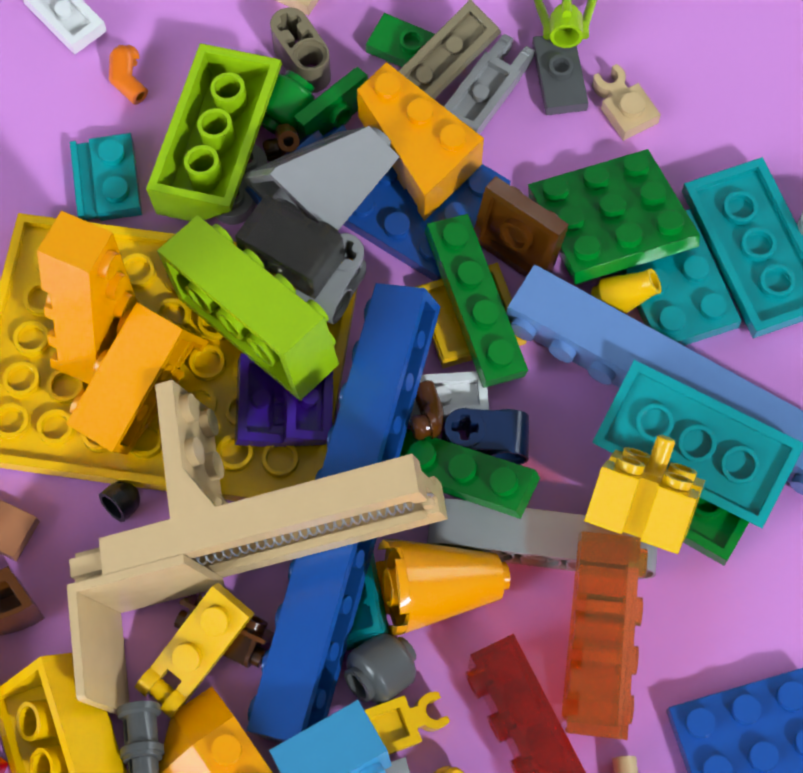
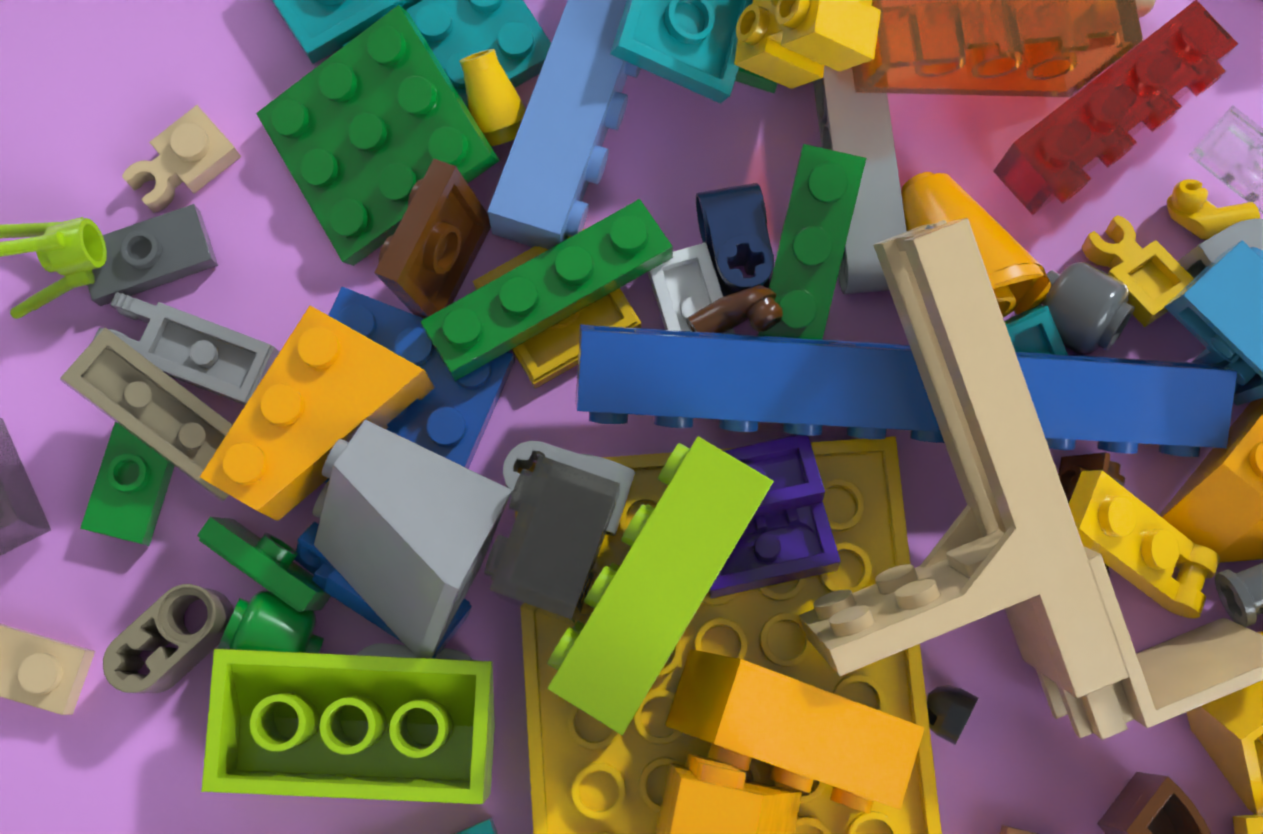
camera: 105 degrees left, 10 degrees up
(285, 141) = (341, 622): reddish brown arm -> none

